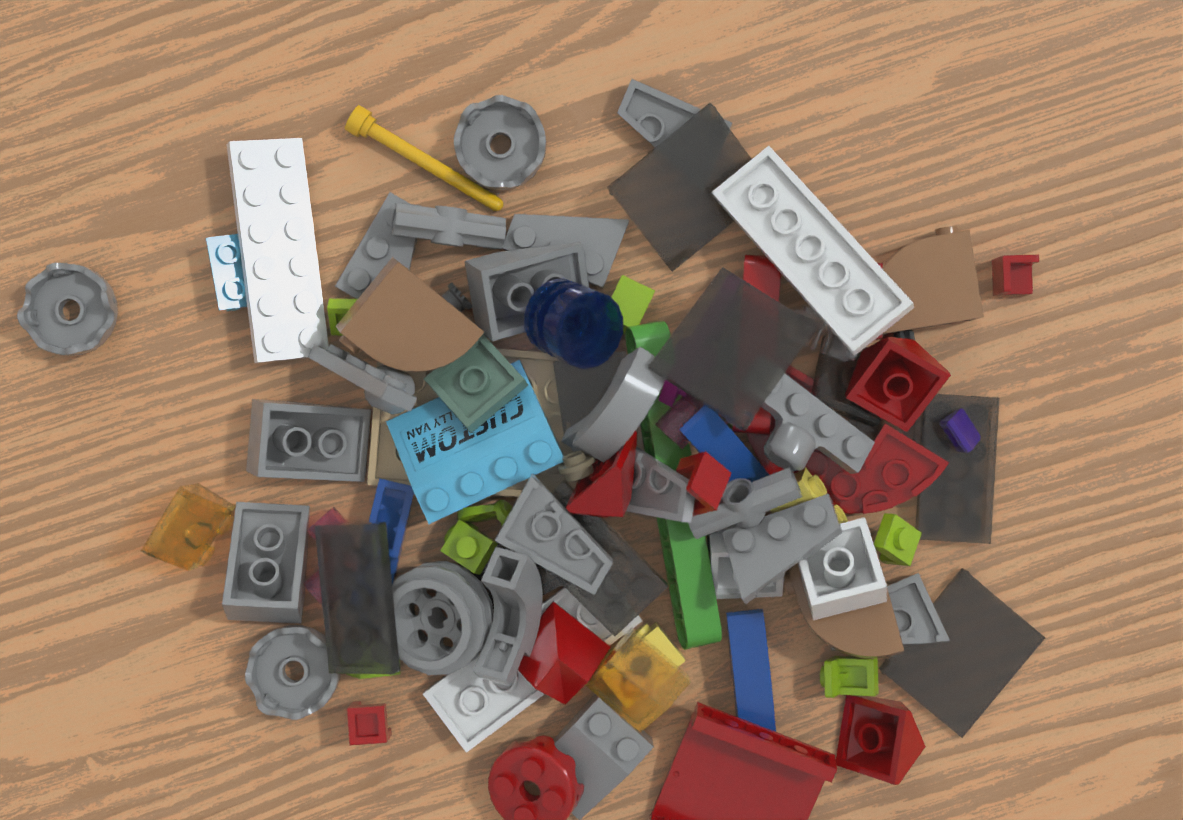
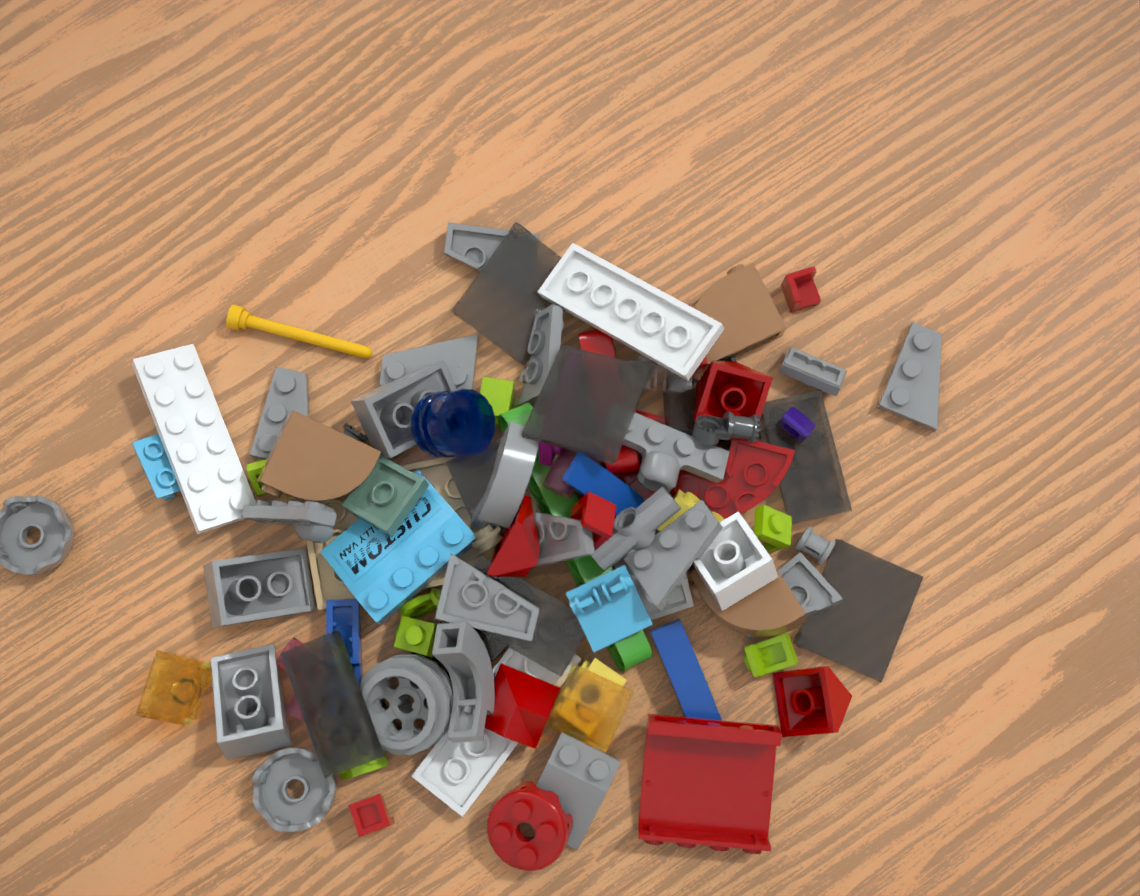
camera: 10 degrees left, 10 degrees down
(448, 226) = (331, 378): light grey piece -> none
(496, 117) = (350, 282): light grey plate -> none
(689, 581) = (609, 608): none -> medium azure hinge
(699, 267) = (543, 347): none -> light grey wing
(879, 417) = (711, 429): none -> dark grey connector
(936, 570) = (814, 545): none -> light grey bush
(997, 373) = (813, 371): none -> light grey plate
(1110, 412) = (915, 379): none -> light grey wing

